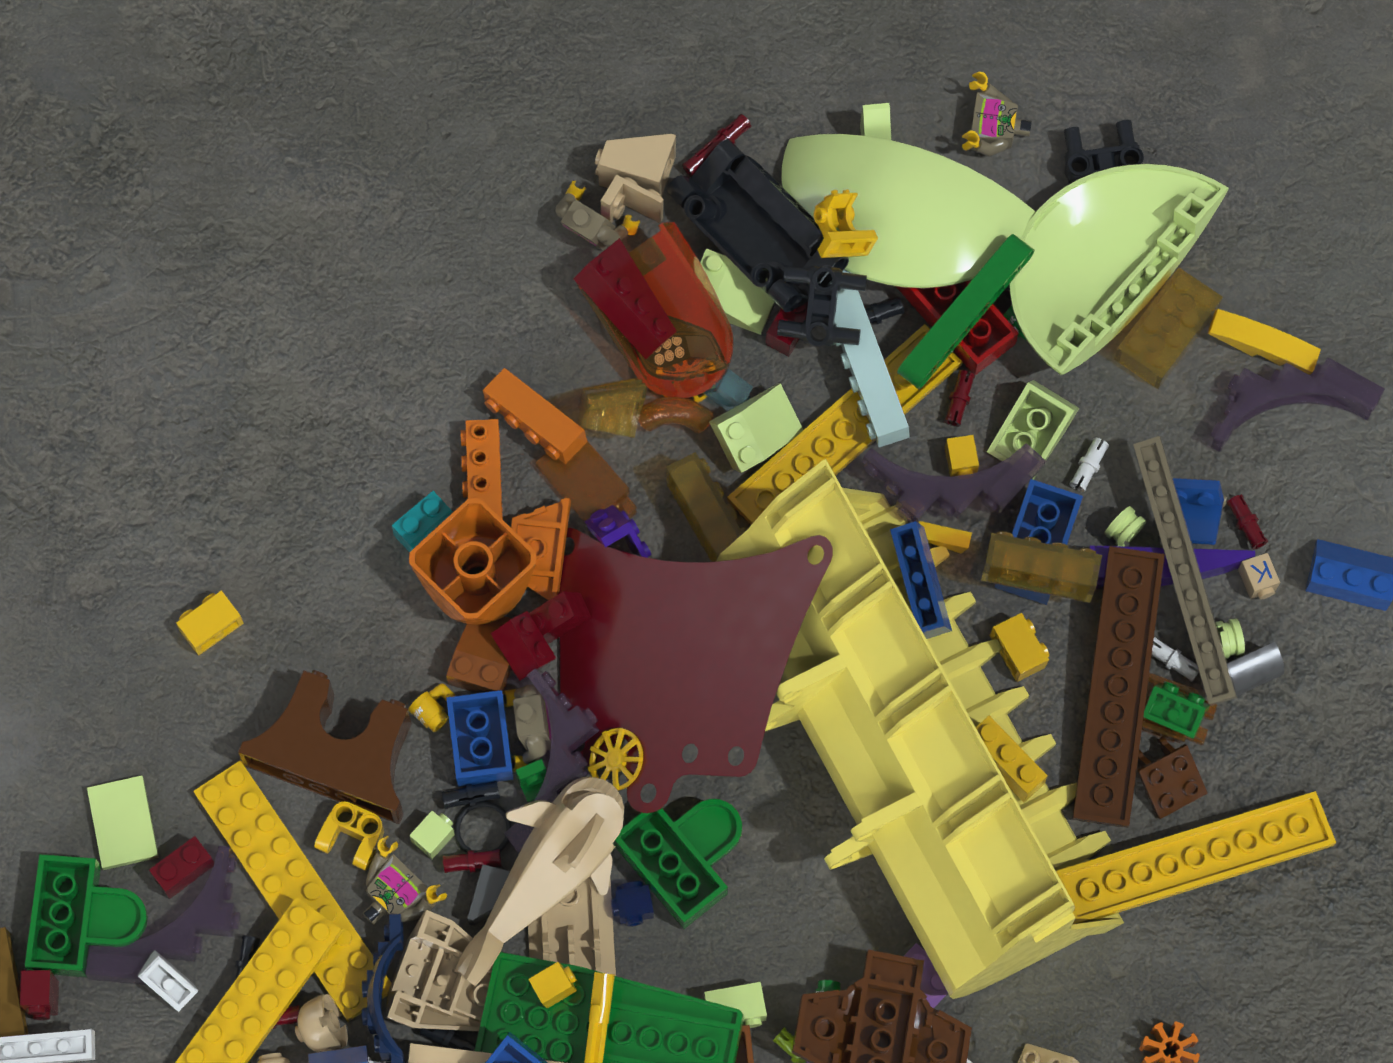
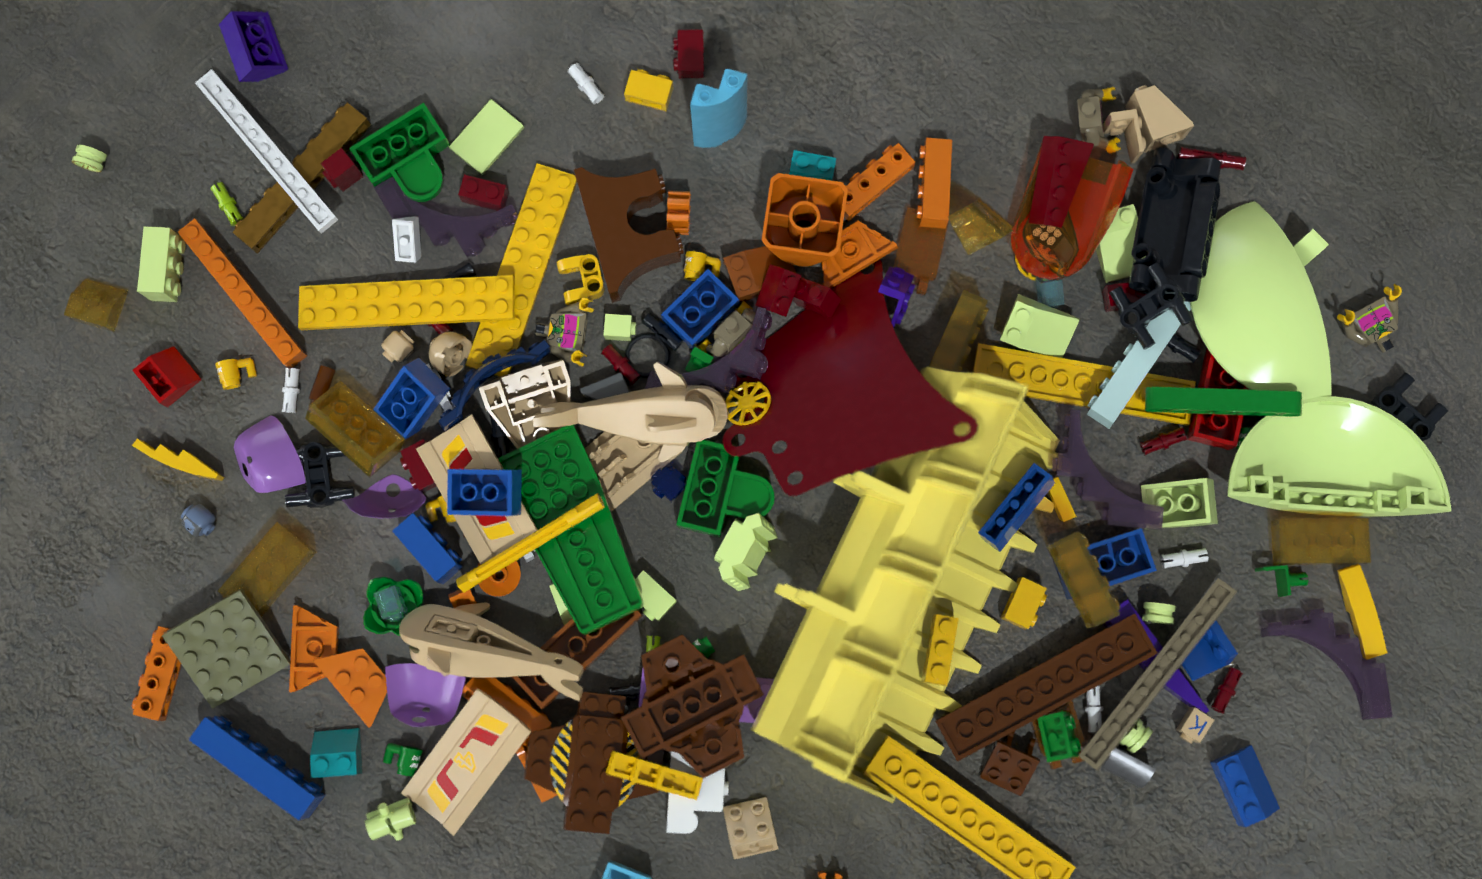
camera: 55 degrees right, 10 degrees up
(150, 680) = (586, 83): none -> white pin
(205, 554) = (690, 53): none -> dark red brick
(300, 561) = (719, 112): none -> medium azure cylinder
(362, 684) = (678, 212): none -> orange gear
(553, 984) = (573, 473): yellow brick -> none
(675, 411) = (1009, 268): clear orange cylinder -> none
(758, 876) = (744, 550): none -> yellowish green slope
(838, 212) = (1223, 268): yellow tile -> none
(961, 455) = (1123, 472): yellow brick -> none
(1179, 388) = (1284, 579): none -> green bracket

